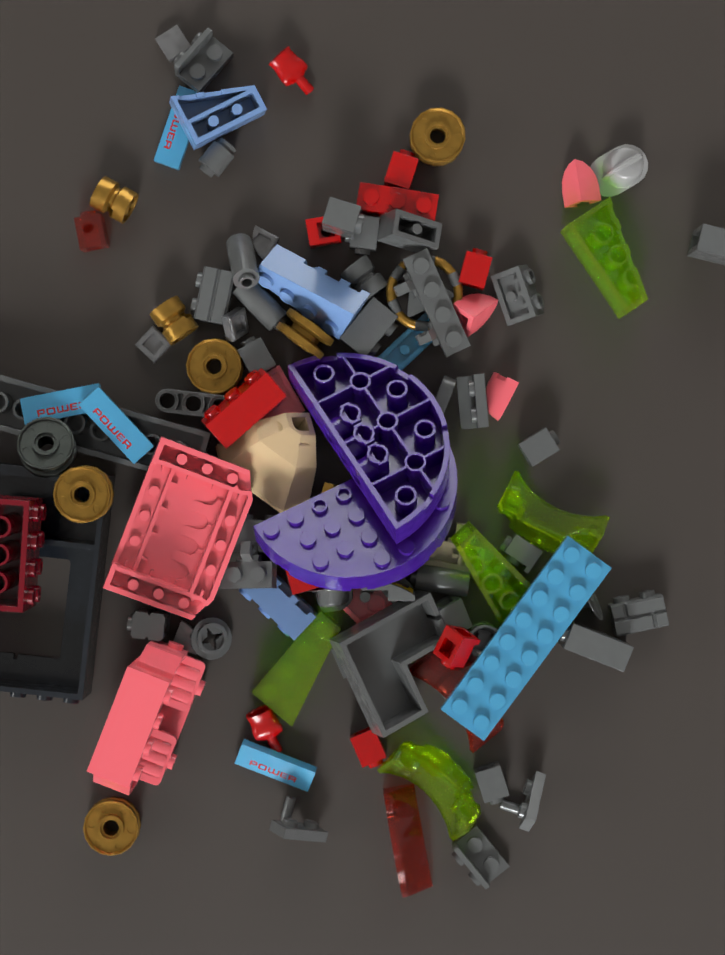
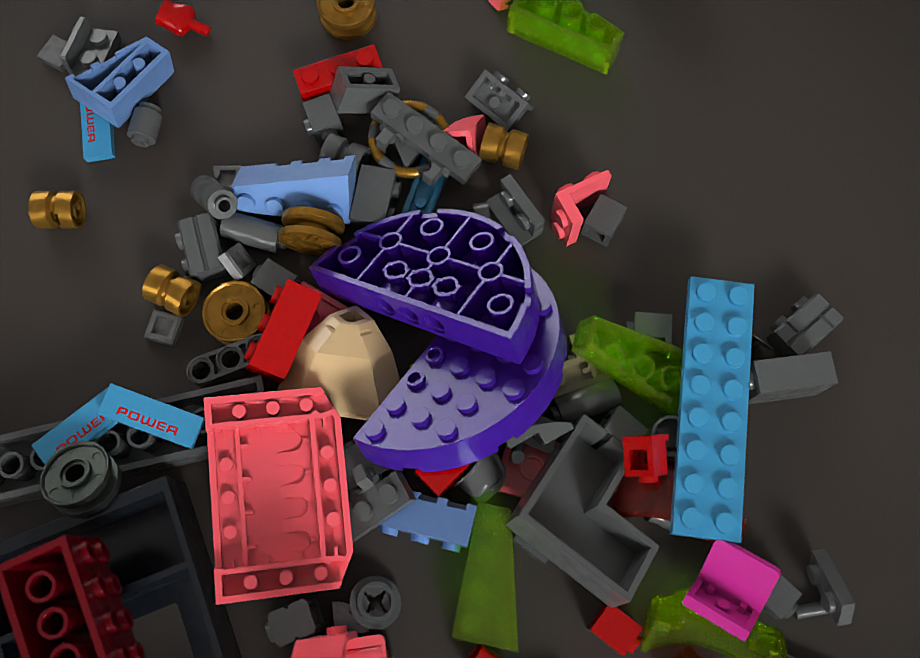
camera: 30 degrees left, 15 degrees down
(67, 498) = (122, 507): pearl gold wheel -> none
(91, 231) = (48, 252): clear red brick -> none
(316, 239) = (282, 135): red brick -> none
(343, 218) = (290, 98): dark grey brick -> none
(401, 169) = (327, 43): red brick -> none
(460, 766) = (732, 588): none -> dark pink bracket
(475, 269) = (447, 97): red brick -> none
(496, 340) = (503, 146): none -> pearl gold wheel
(499, 393) = (538, 191): coral brick -> none
(507, 430) = (570, 199): none -> coral bracket
(545, 524) = (653, 291): clear neon green windscreen -> none

